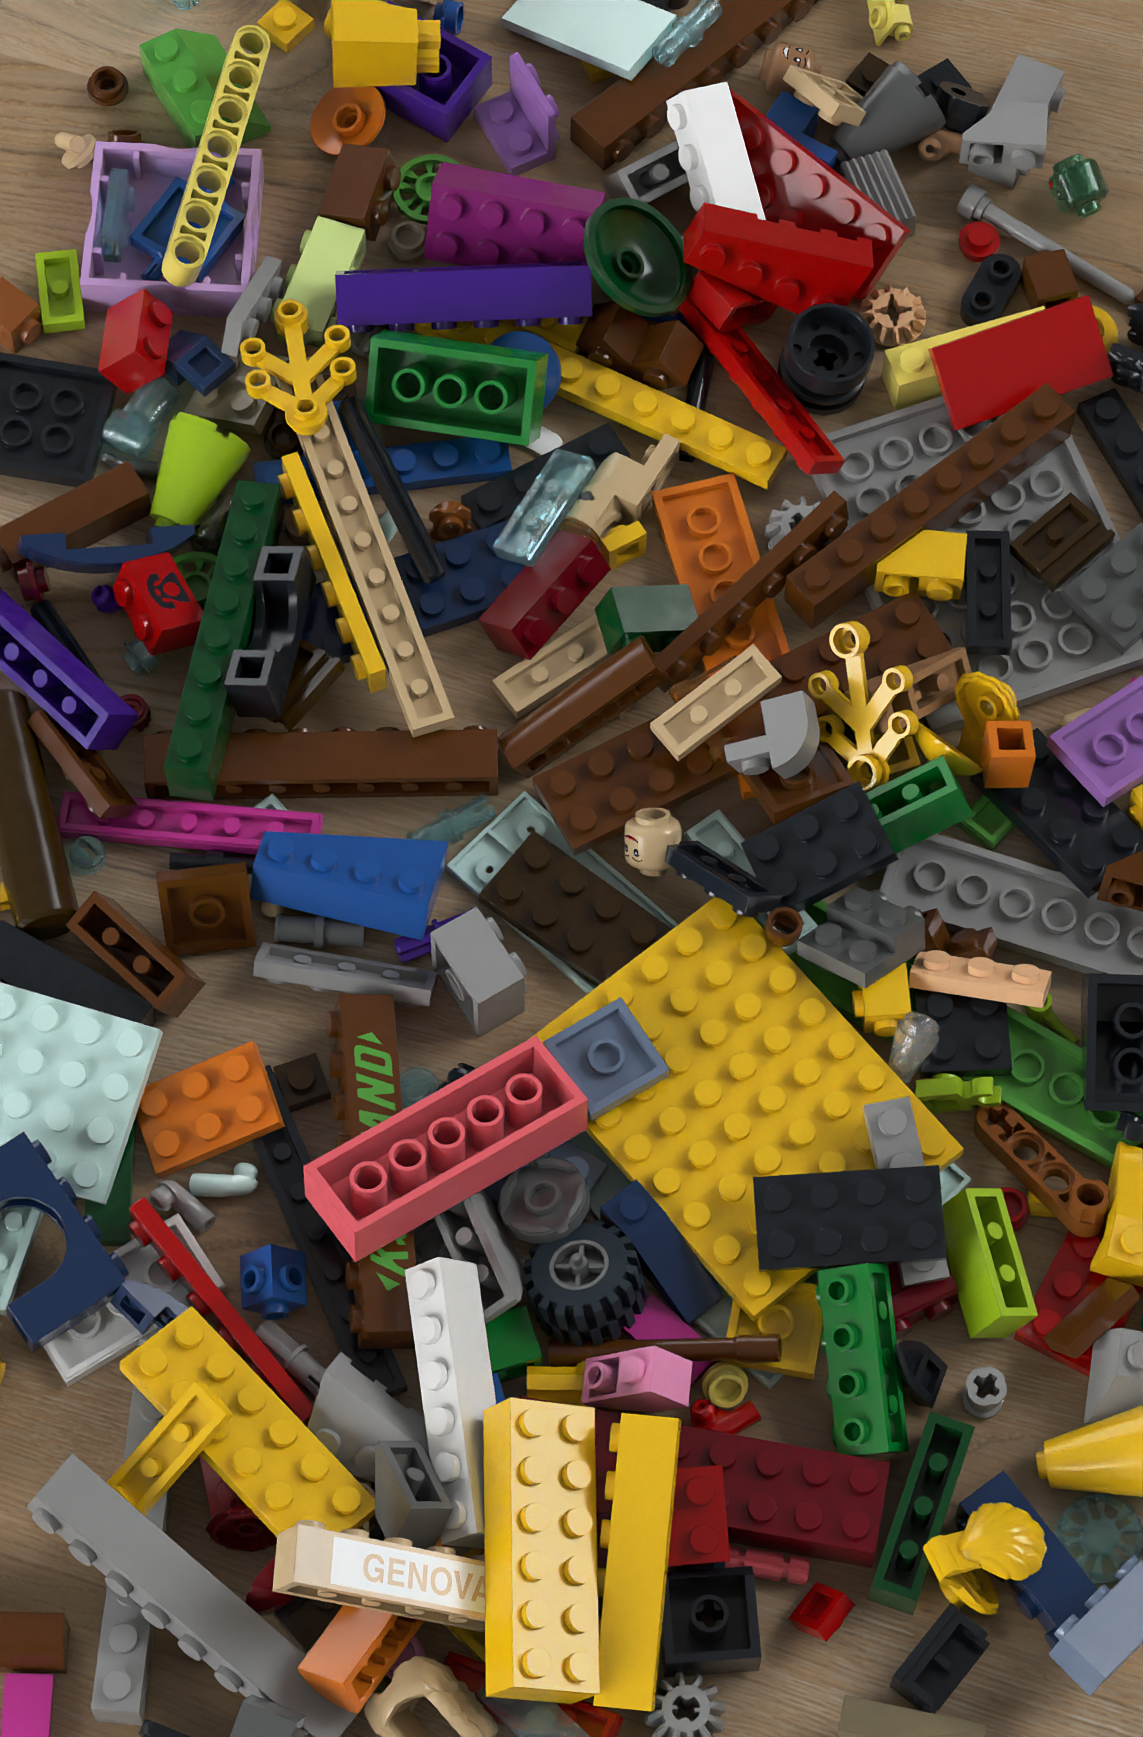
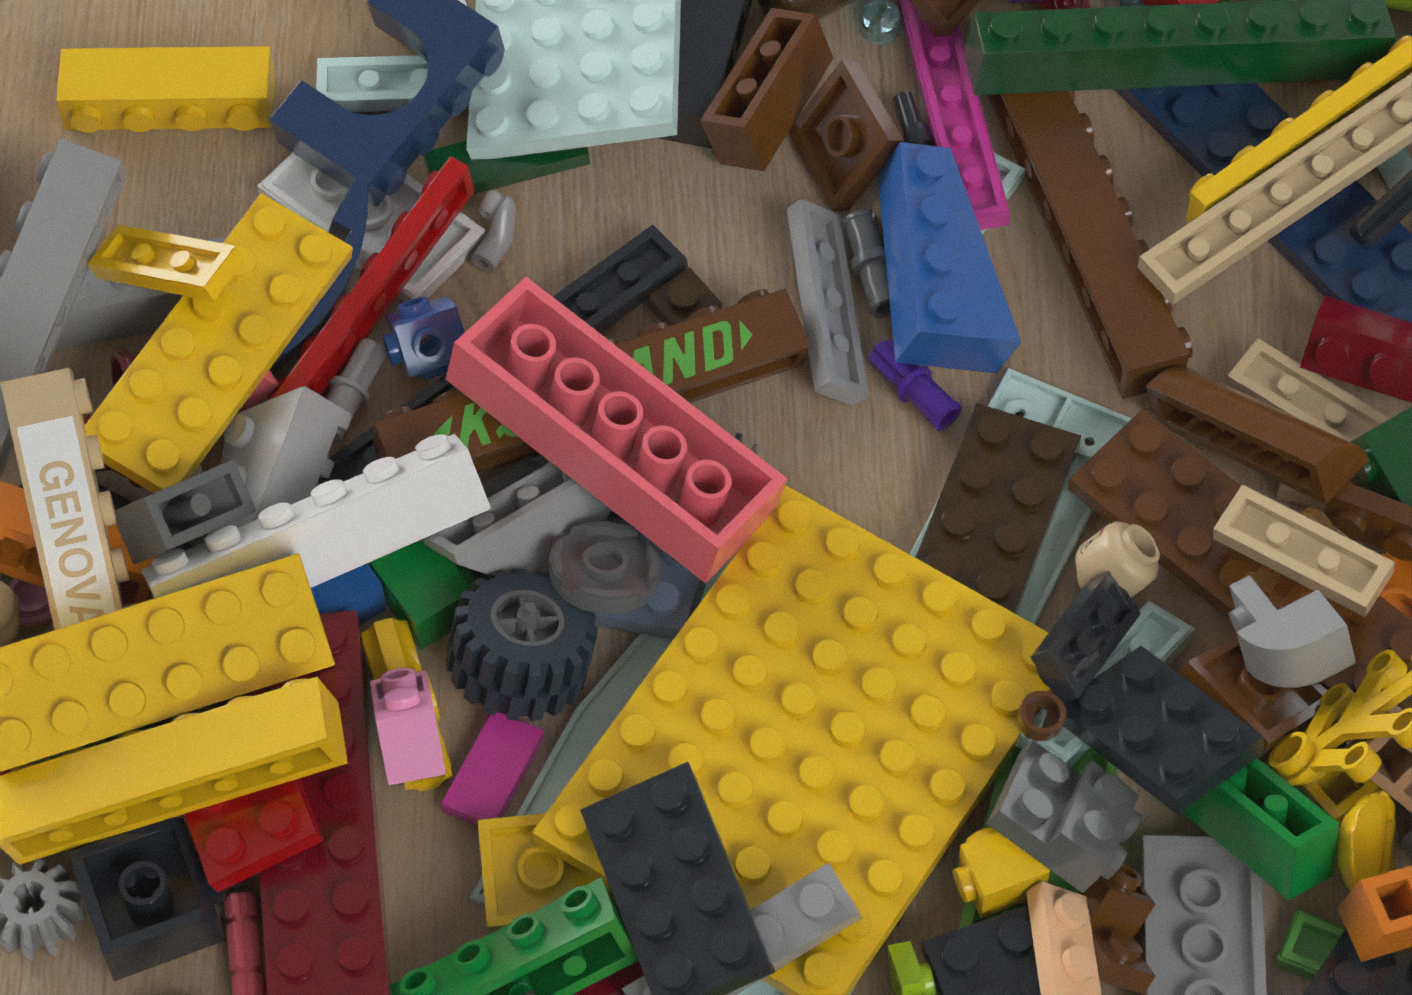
camera: 75 degrees right, 5 degrees down
(208, 1109) = (611, 215): orange plate -> none
(225, 1185) = (531, 263): light aqua arm -> none
(283, 594) = (1260, 82): black arch -> none
(309, 680) = (1158, 133): dark brown plate -> none
(416, 1085) = (722, 410): clear light blue plate -> none
(454, 824) = (1059, 356): clear light blue pin -> none
(479, 970) = (871, 422): light grey brick -> none
(608, 1057) = (793, 569): sand blue plate -> none
(662, 1252) = (587, 710): dark blue slope -> none
(715, 1419) = (408, 854): red arm -> none
(725, 1384) = (452, 841): light yellow plate -> none
(742, 1349) = (487, 830): reddish brown piece -> none
(912, 1044) = (946, 912): clear cone -> none

